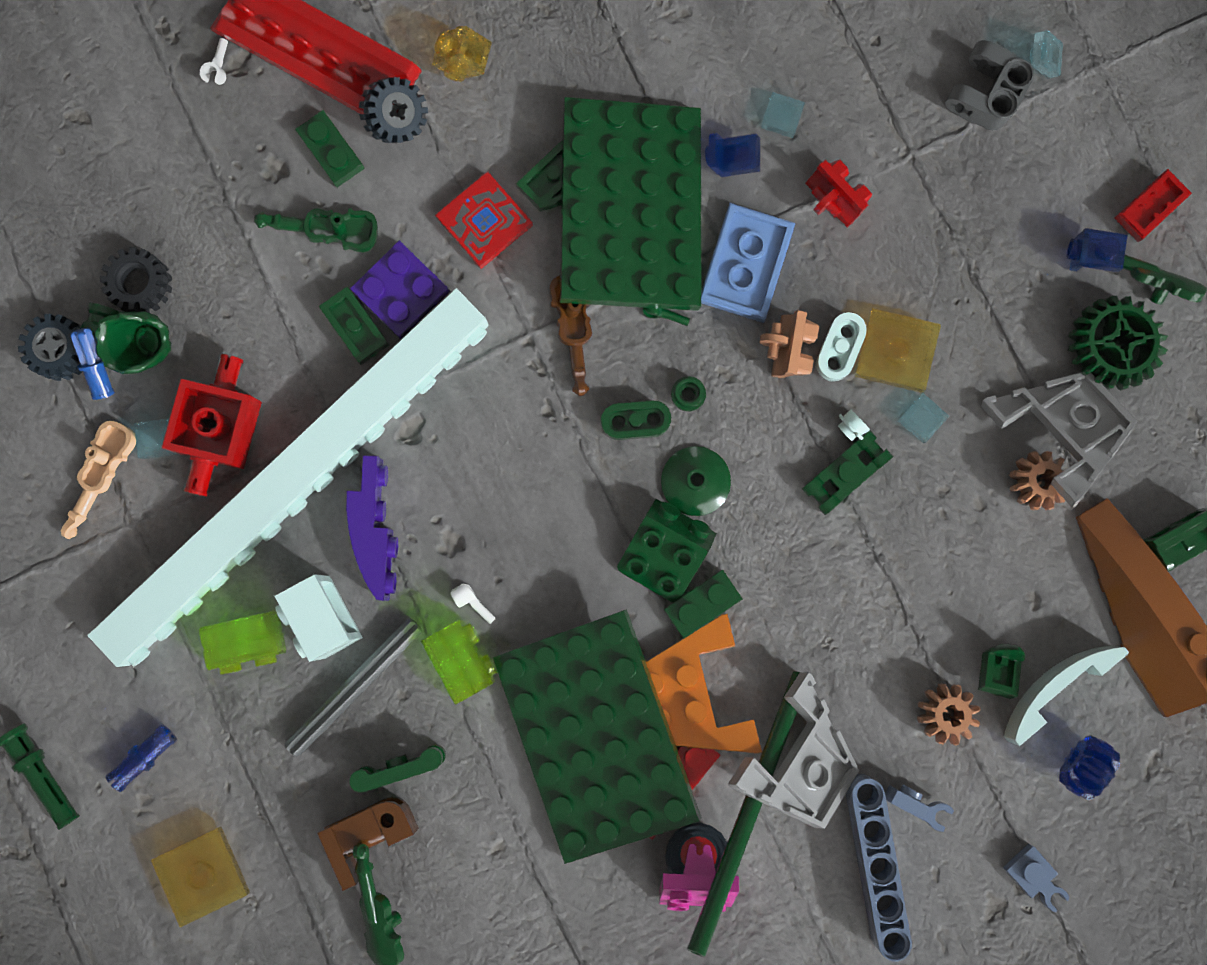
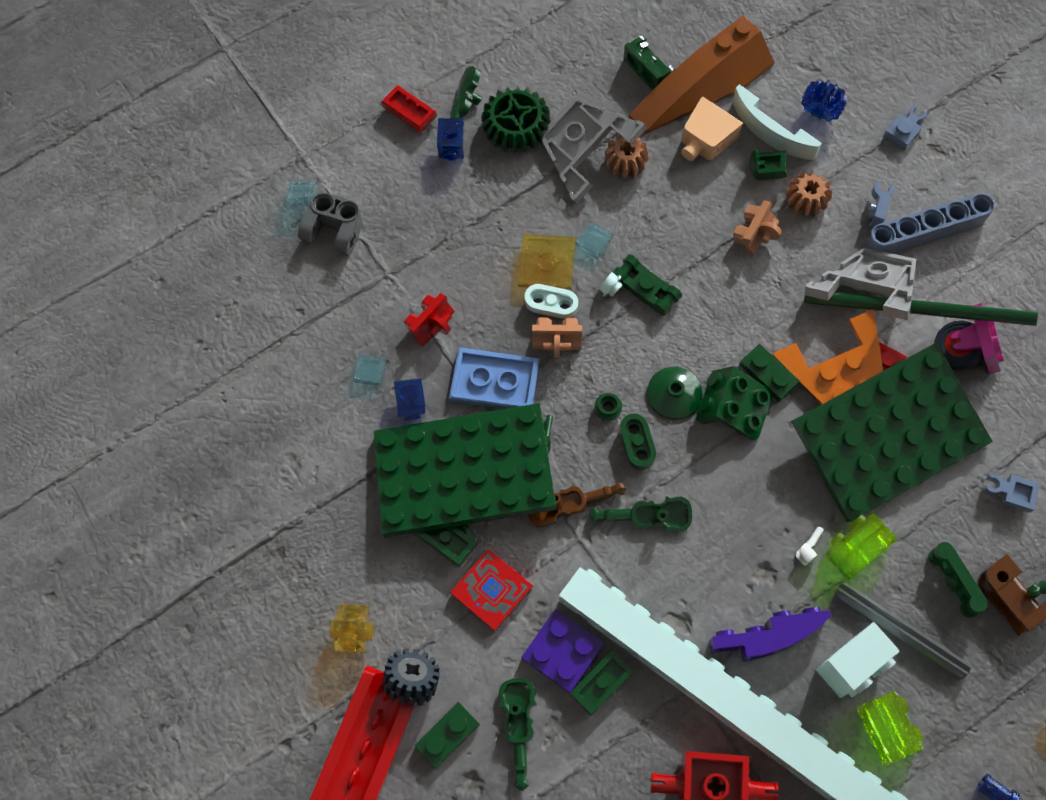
camera: 95 degrees left, 15 degrees down
(494, 874) = (1015, 491): none -> sand blue plate
(539, 444) = (672, 513): none -> dark green piece
(905, 636) = (762, 227): none -> nougat hips
(1063, 598) = (709, 131): none -> light nougat torso

